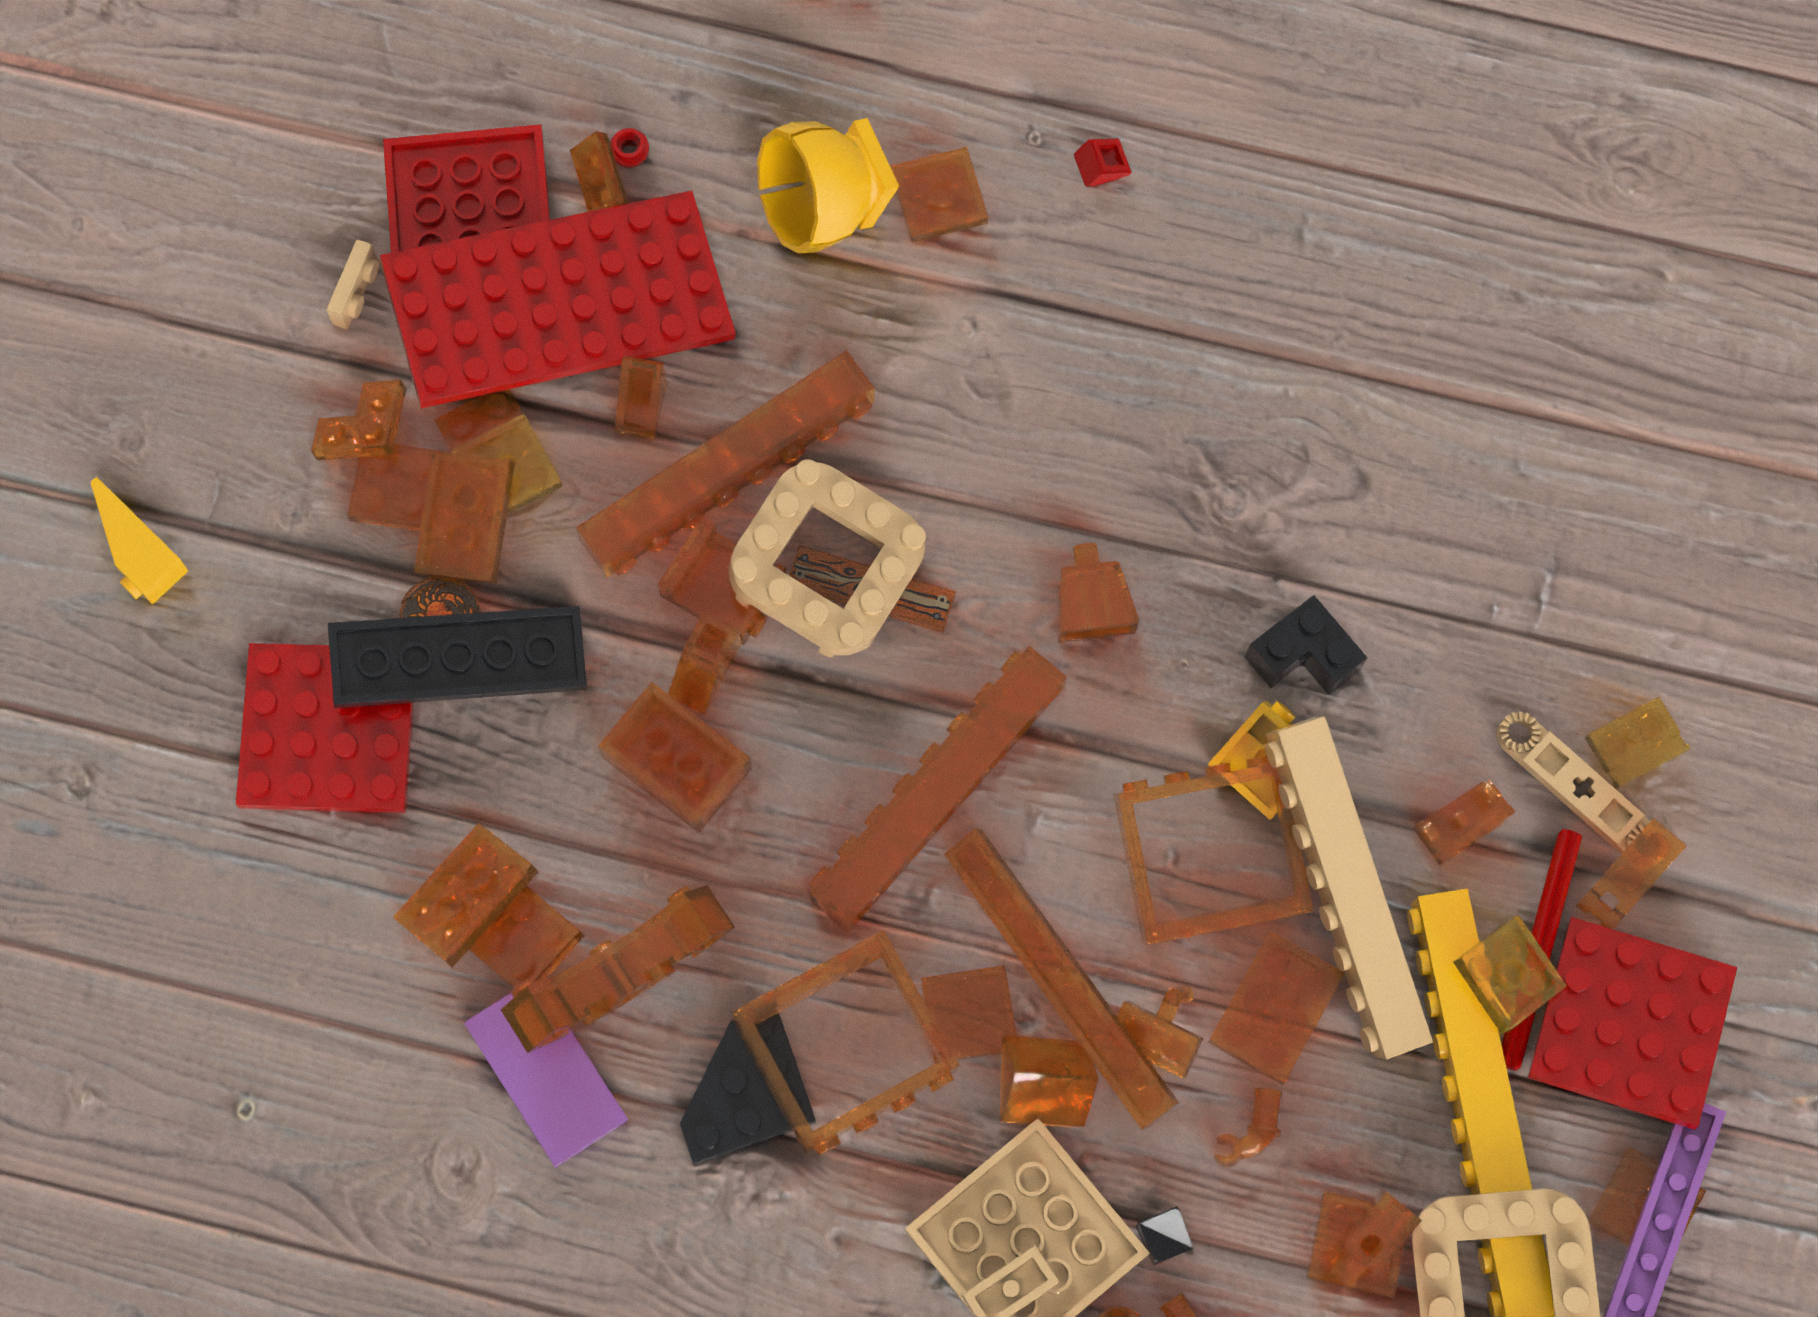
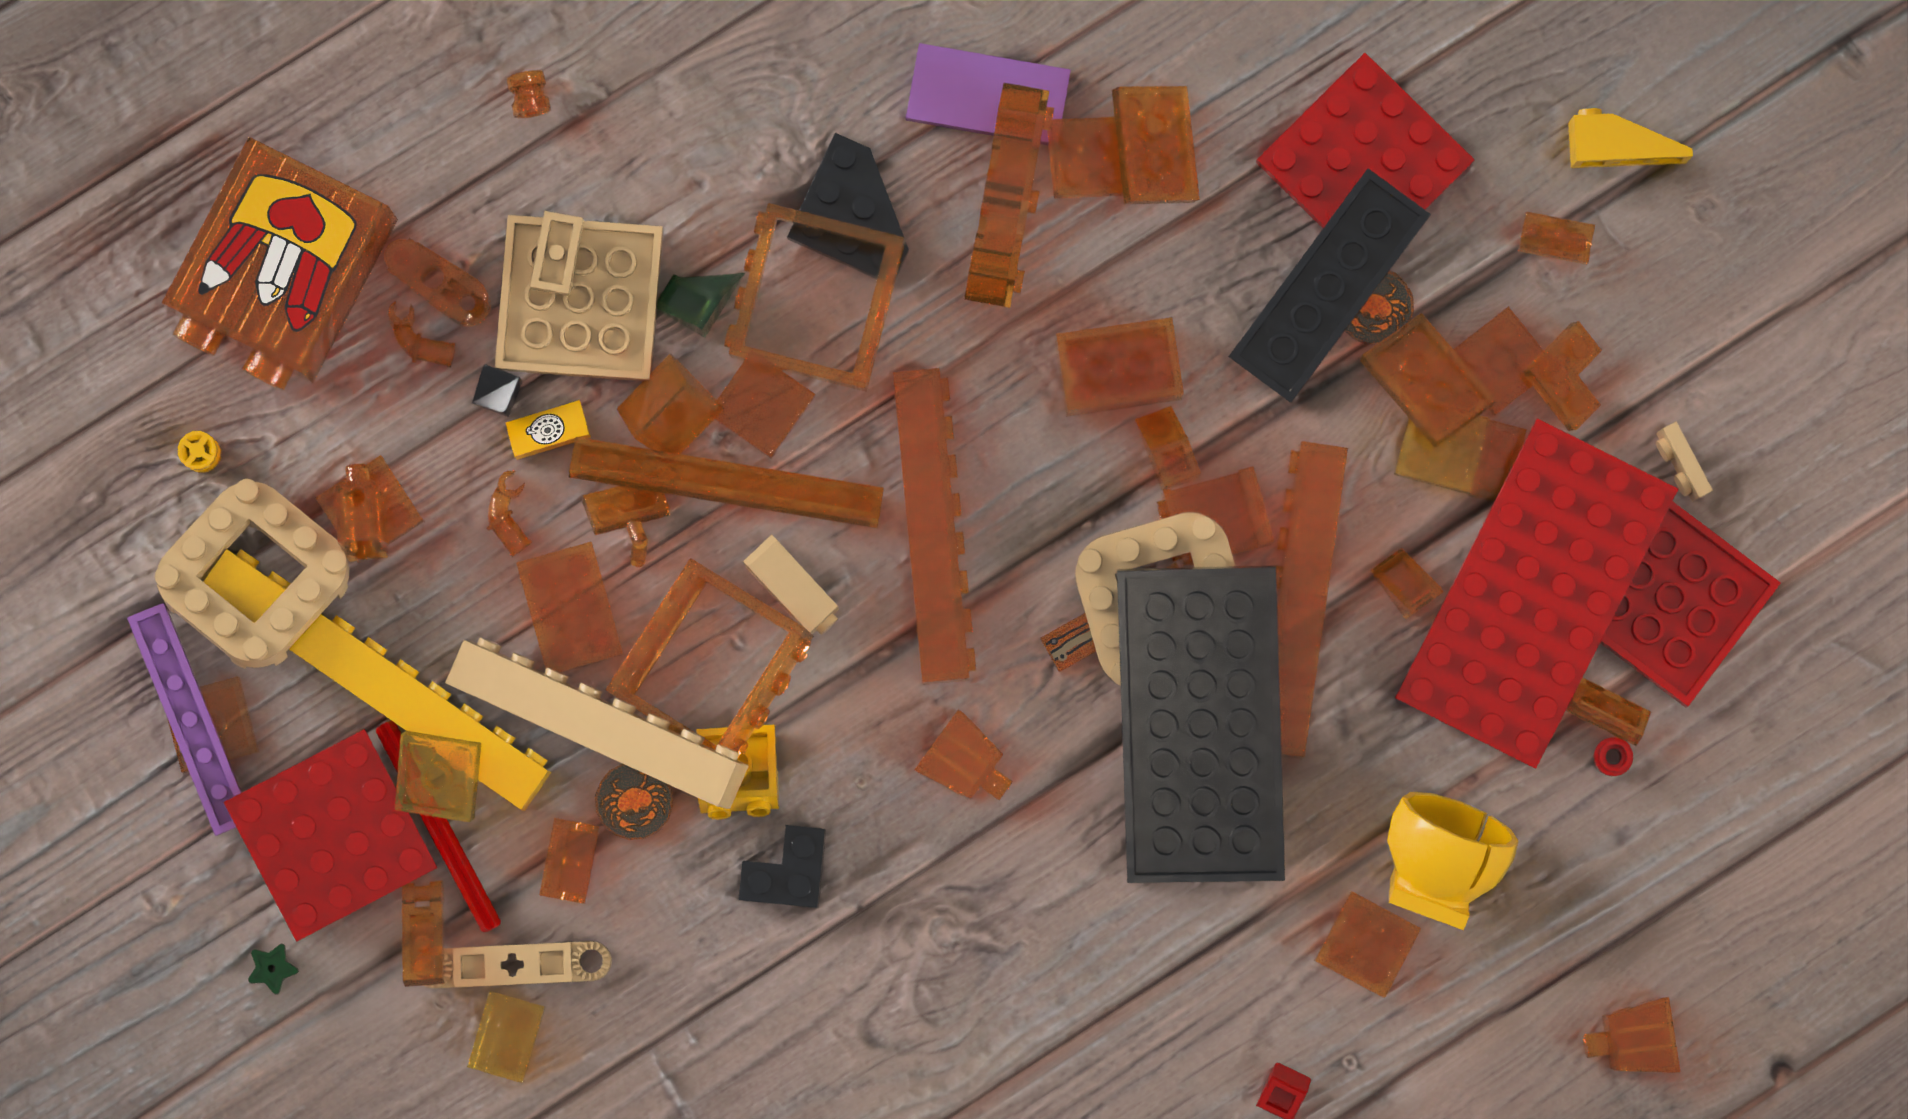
camera: 135 degrees right, 10 degrees up
(258, 524) = (1556, 238): none -> clear orange hips
(894, 442) = (1201, 724): none -> black plate
(934, 1144) = (697, 299): none -> clear green slope
(1091, 848) = (792, 586): none -> tan slope
(1155, 1164) = (547, 430): none -> yellow slope
(1382, 814) = (633, 803): none -> clear orange tile
(1761, 971) = (274, 979): none -> dark green plate

